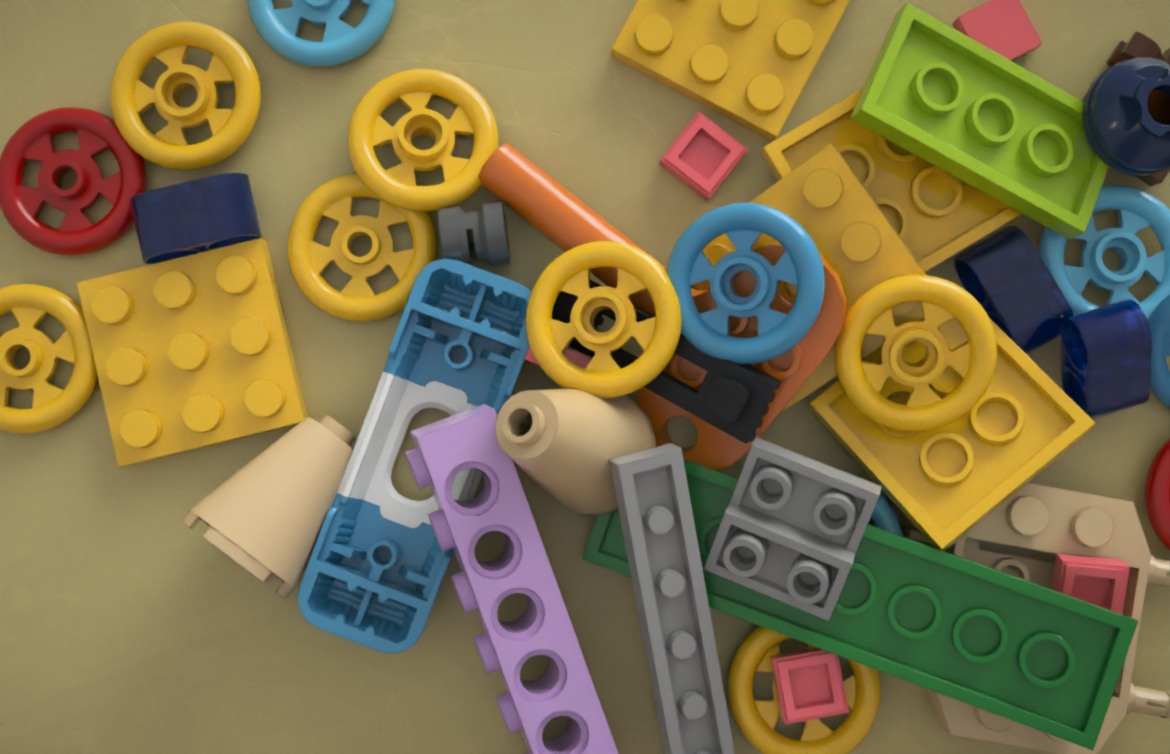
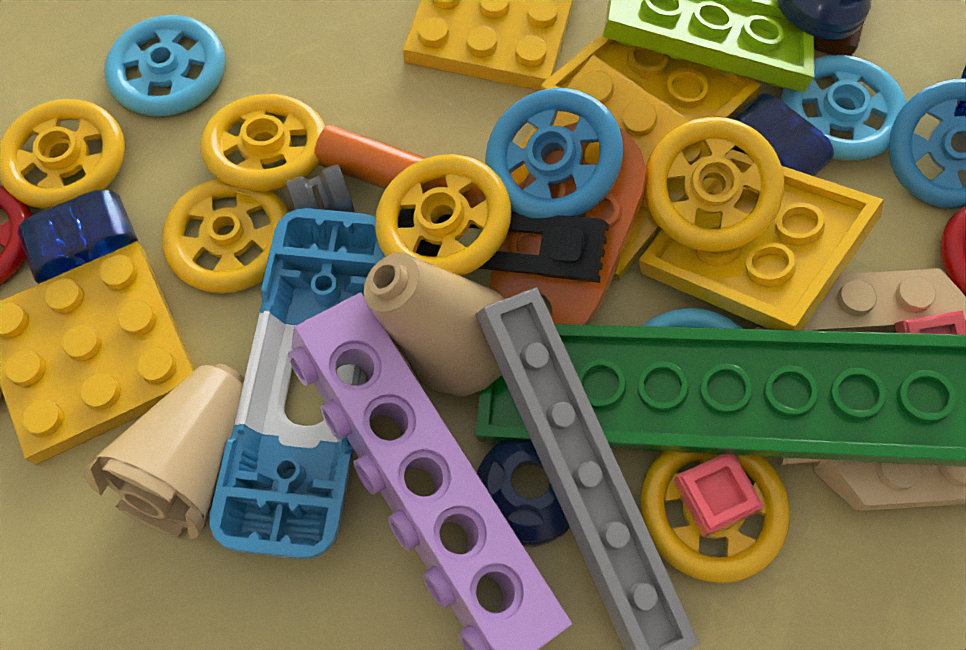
camera: 10 degrees left, 20 degrees down
(588, 609) = (532, 520): none -> dark blue piece
(703, 156) = (488, 105): coral tile -> none
(792, 528) = (657, 346): light grey slope -> none
(1107, 358) = (872, 160): clear blue beam -> none

